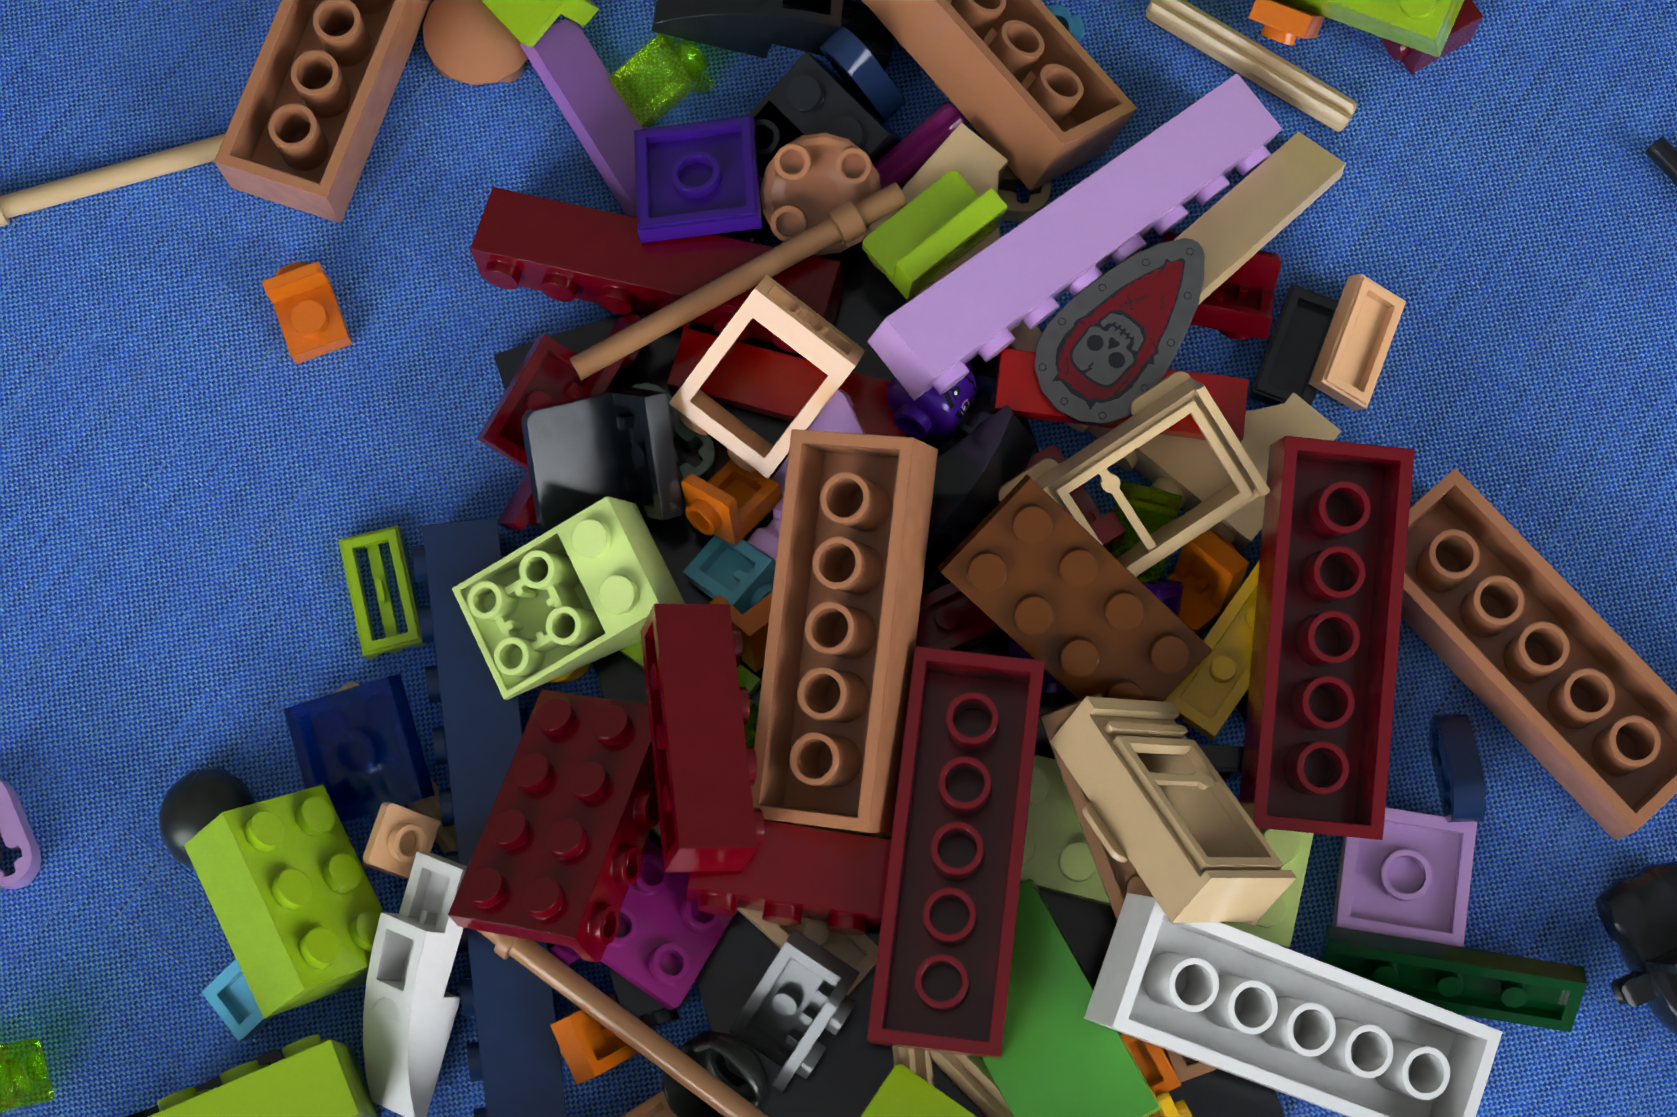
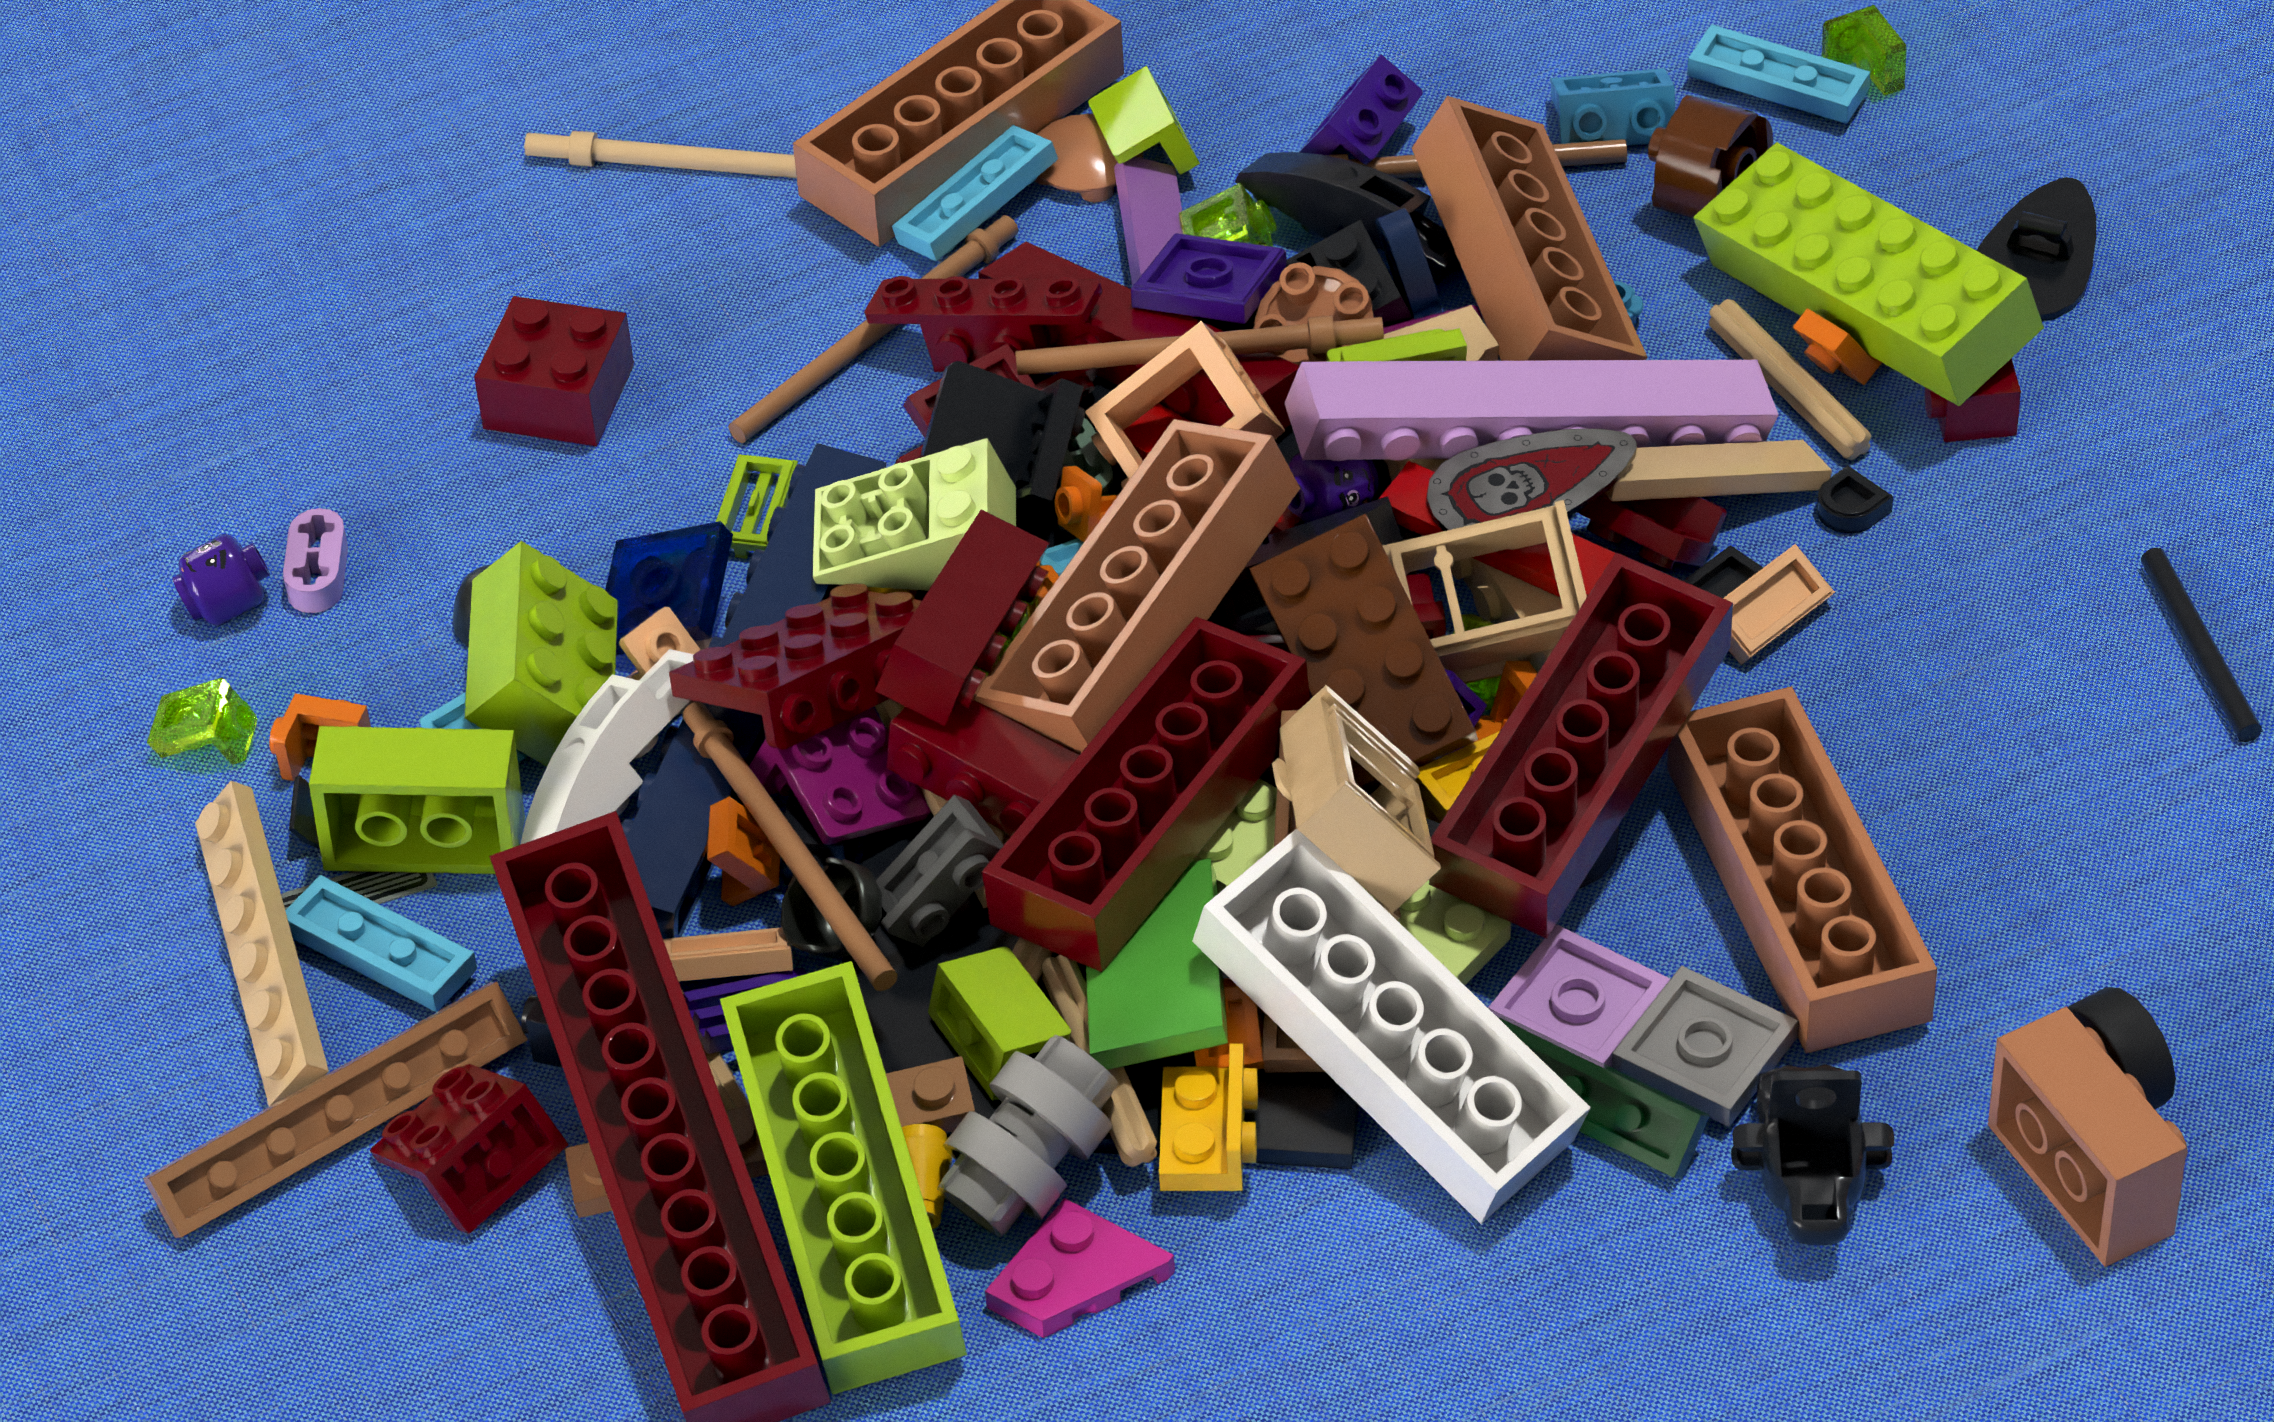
camera: 25 degrees right, 30 degrees down
(112, 515) = (554, 371): none -> dark red brick
(127, 1038) = (297, 732): none -> orange bracket
(307, 310) = (812, 290): orange bracket -> none
(405, 130) = (974, 193): none -> medium azure plate
(436, 187) = (978, 247): none -> medium nougat bar
(500, 297) = (976, 316): none -> dark red bracket
(1367, 184) = (1852, 502): none -> black tile
(1457, 768) = (1673, 929): dark blue beam -> none
(1536, 877) = (1705, 1044): none -> light grey plate

